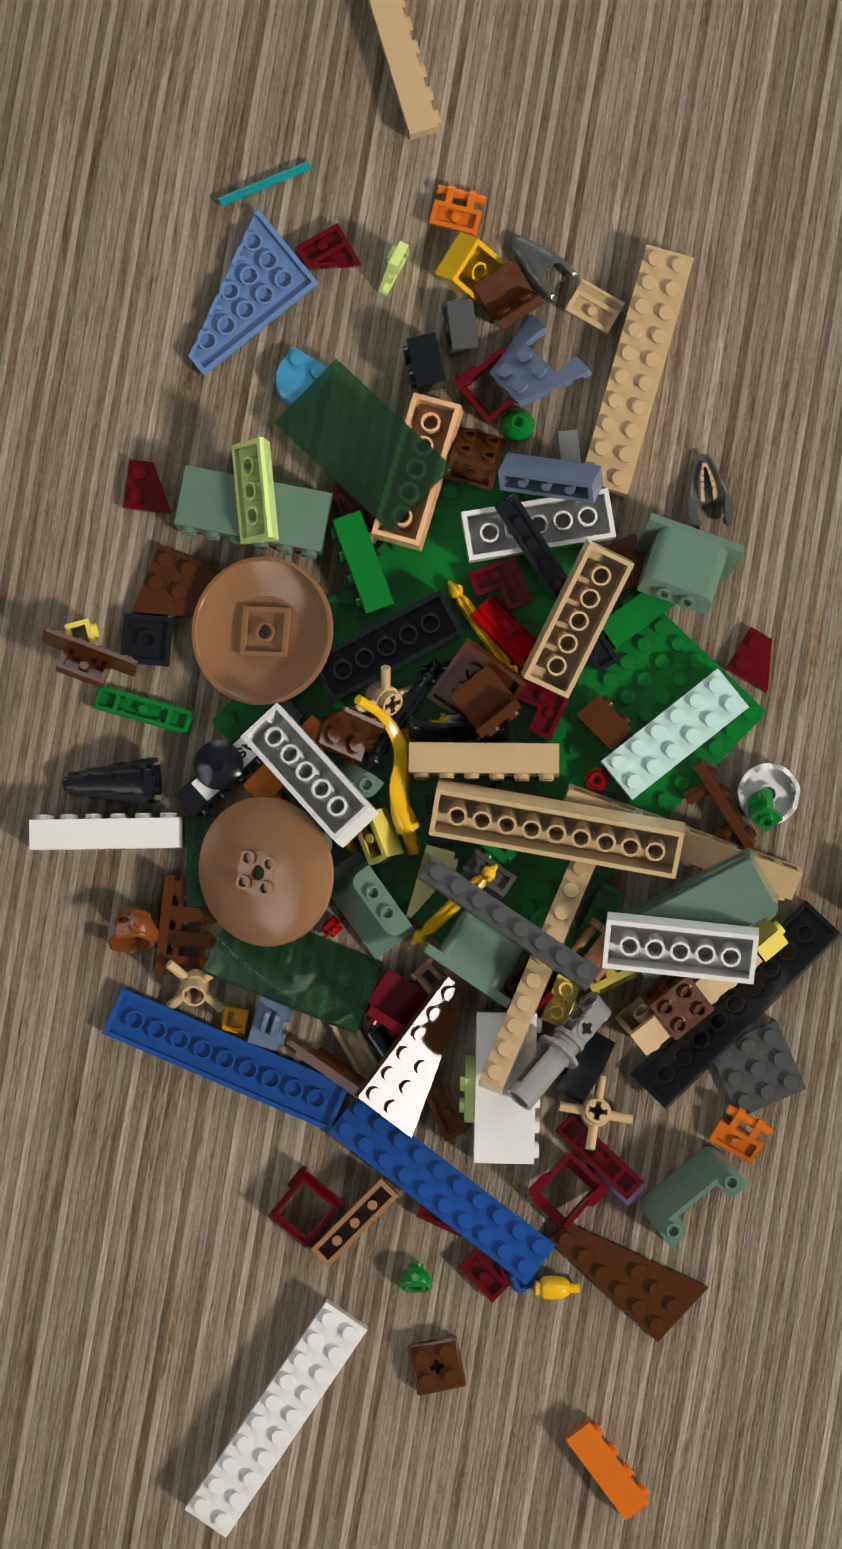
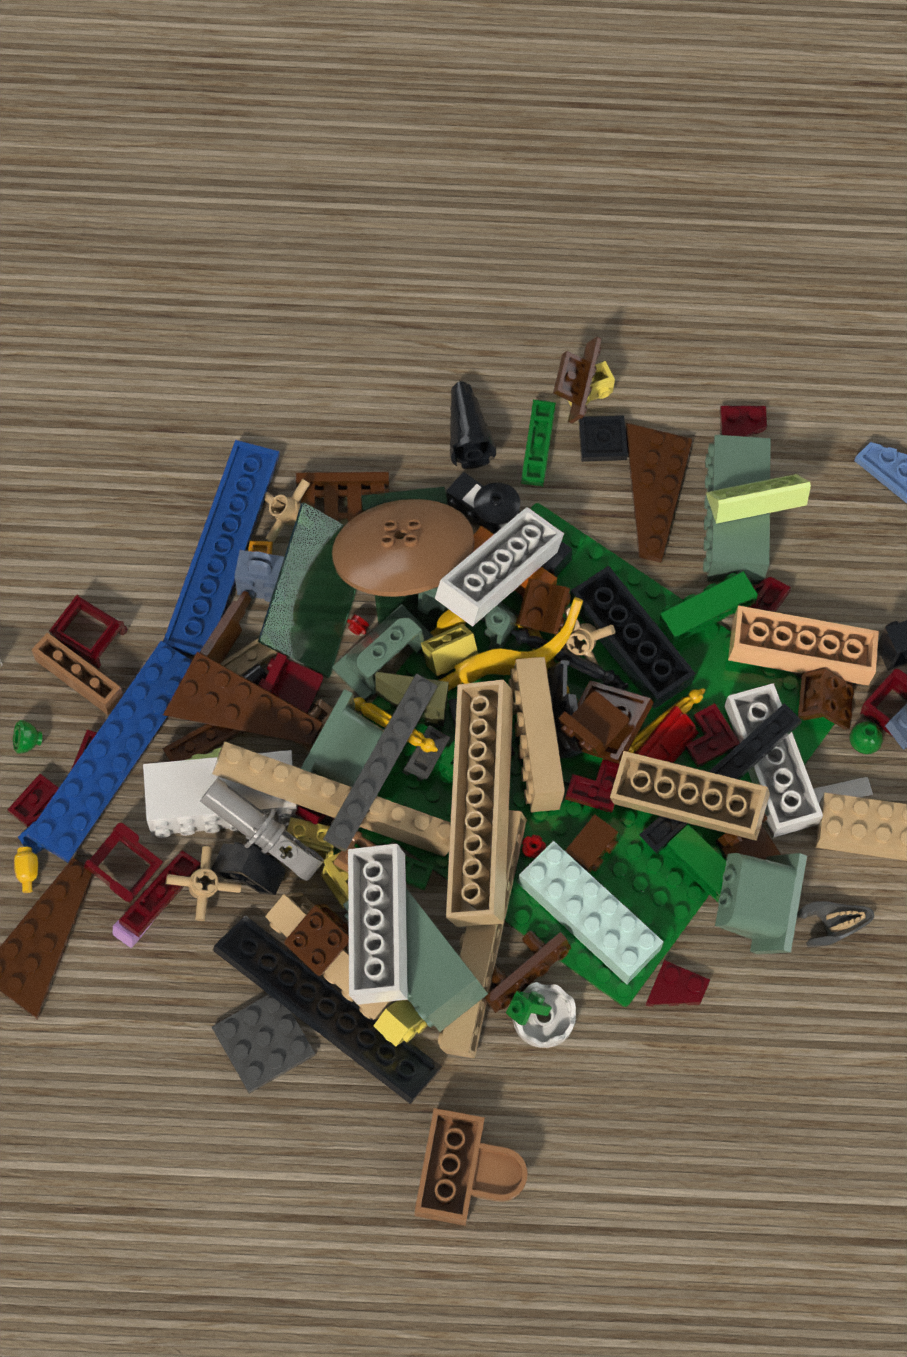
camera: 80 degrees right, 20 degrees down
(107, 833) = (421, 418): white brick -> none
(134, 931) = (332, 453): dark orange helmet -> none
(230, 626) = (654, 509): medium nougat dish -> none
(296, 374) = (870, 540): dark azure slope -> none
(363, 445) = (819, 592): clear green piece -> none
(550, 477) = (822, 761): sand blue brick -> none
(687, 1186) = (156, 1003): sand green windscreen -> none
(737, 1140) = (189, 1026): orange plate -> none

